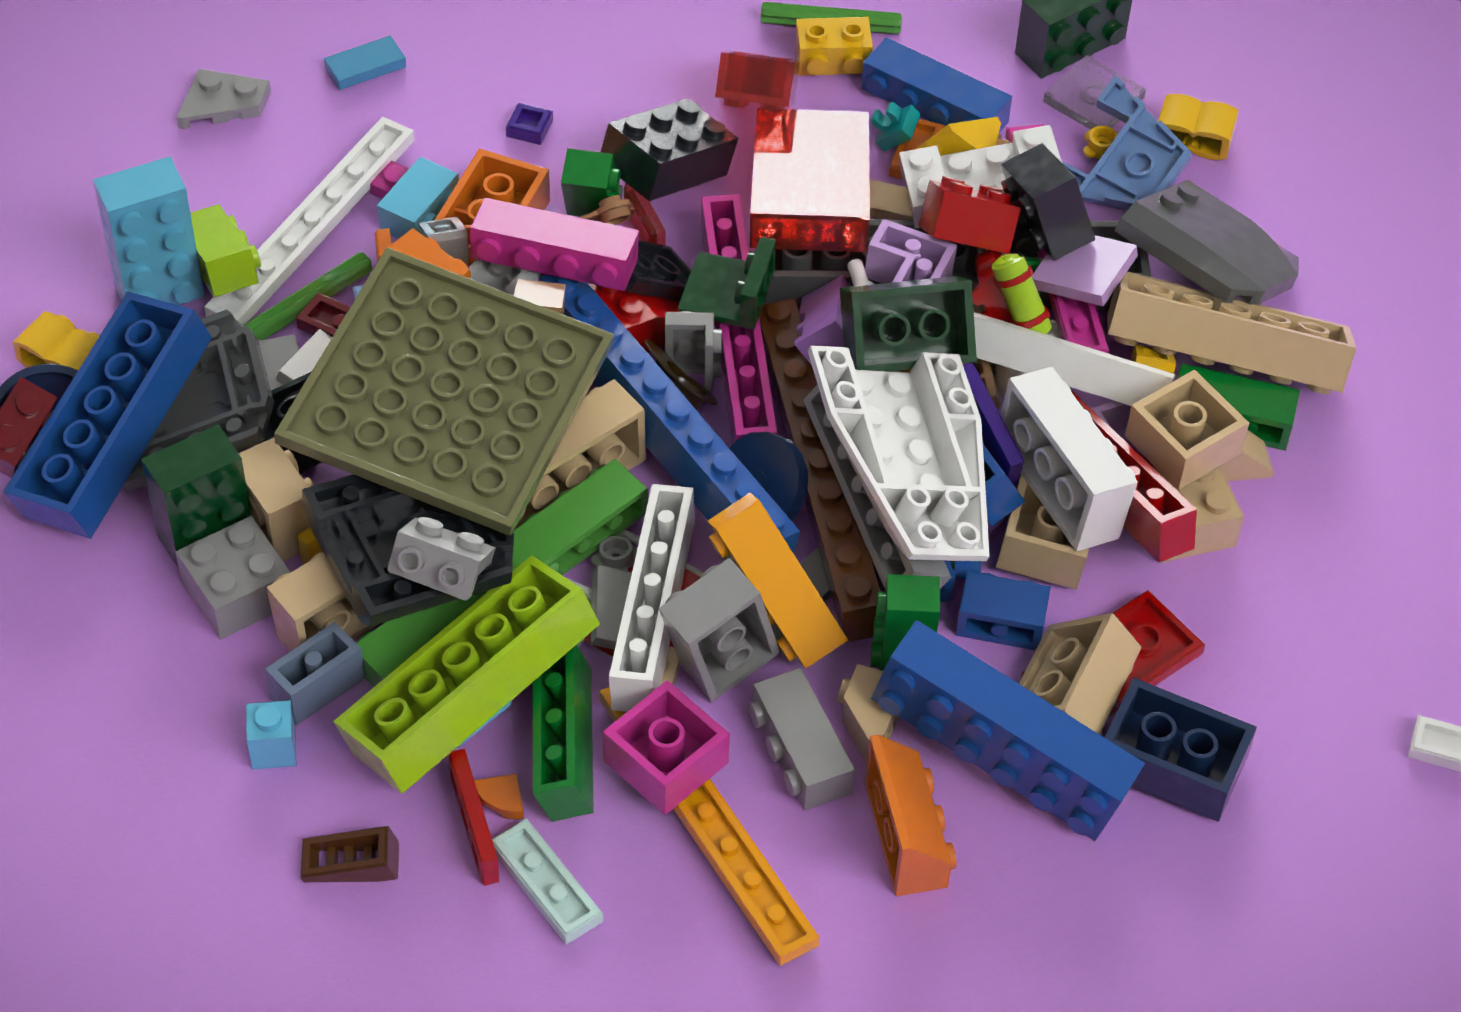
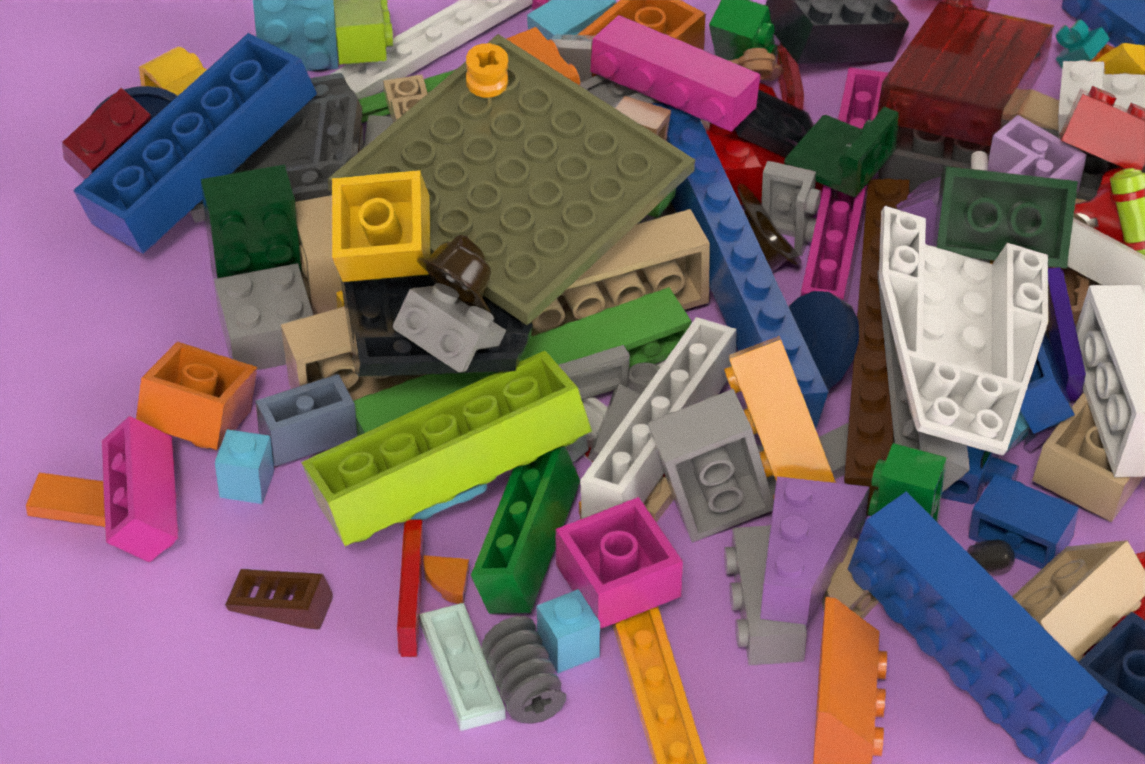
camera: 20 degrees right, 5 degrees down
(115, 808) = (67, 499): none -> orange tile
(179, 784) = (139, 489): none -> dark pink brick
(200, 675) = (196, 395): none -> orange brick
(297, 324) = (403, 94): none -> tan slope
(348, 473) = (380, 225): none -> yellow brick
(401, 296) = (487, 70): none -> light orange wheel
(440, 499) = (462, 268): none -> dark brown piece
(577, 556) = (599, 371): none -> light grey tile
(607, 873) = (523, 670): none -> dark grey piece
(635, 822) = (568, 630): none -> medium azure brick
(827, 686) = (807, 542): none -> medium lavender wedge
(988, 648) = (993, 555): none -> clear smoke cylinder

